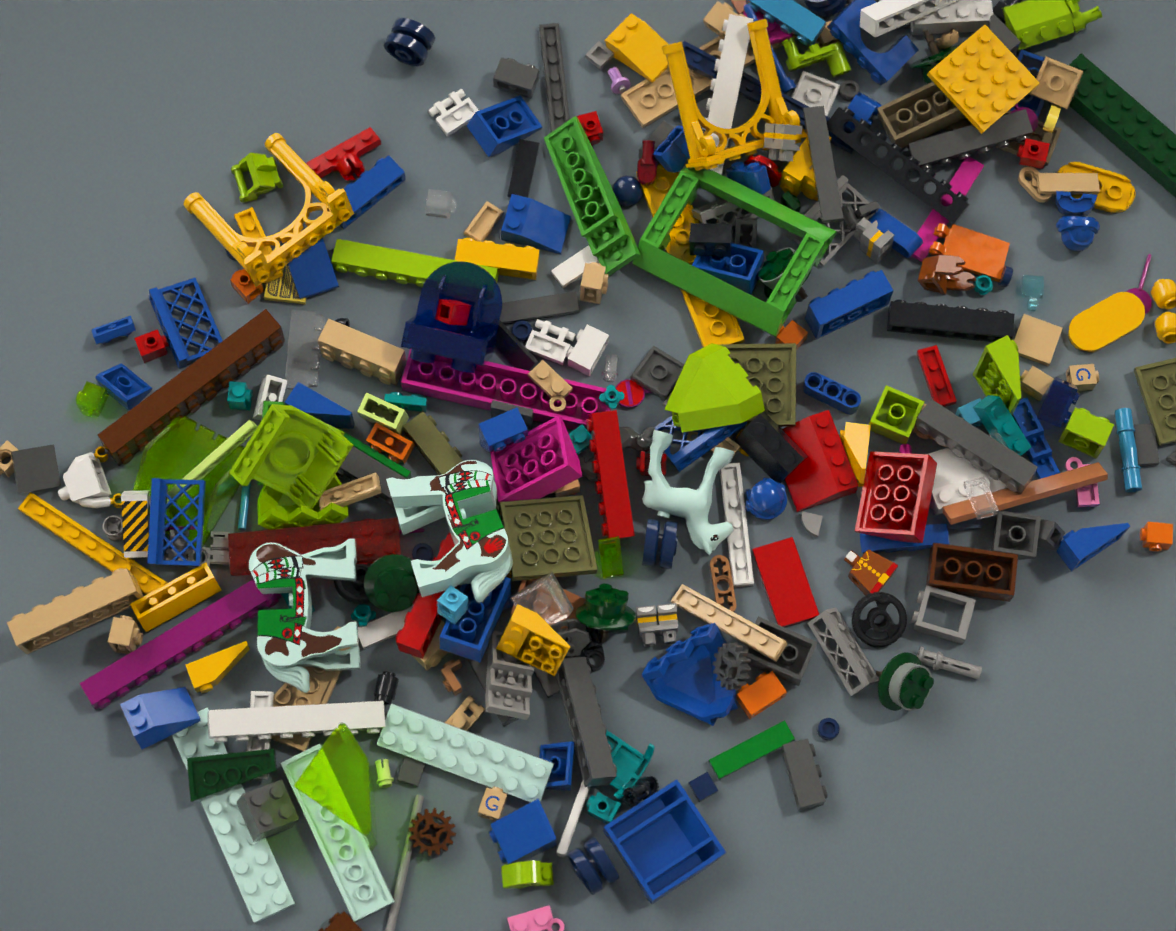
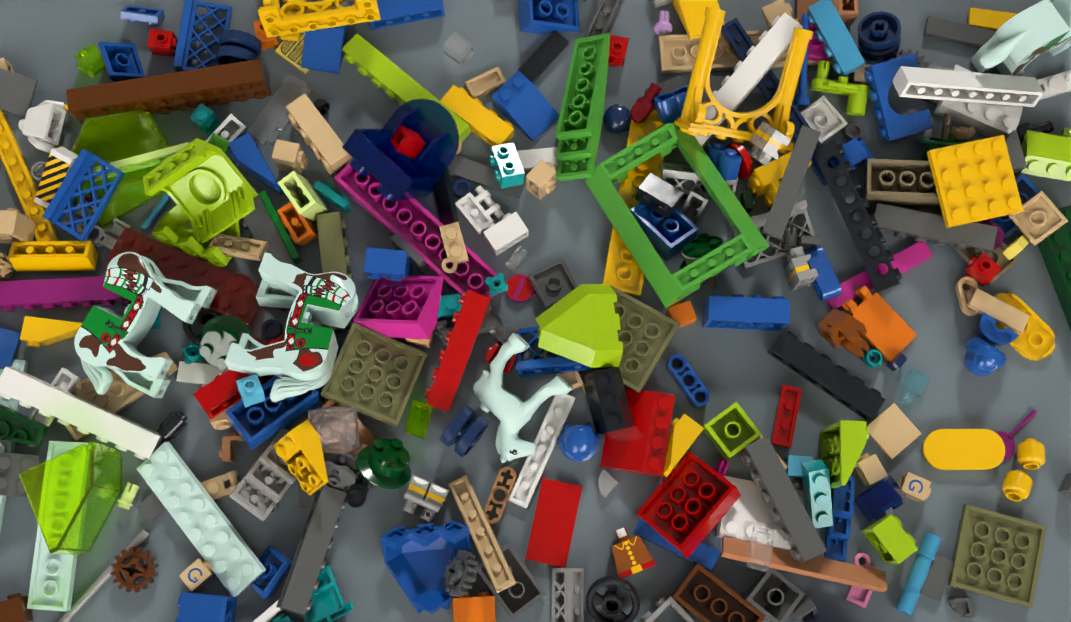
camera: 30 degrees right, 5 degrees up
(232, 312) = (237, 47): none -> dark blue wheel
(346, 386) = (289, 157): none -> tan brick
(552, 287) = (506, 165): none -> teal brick

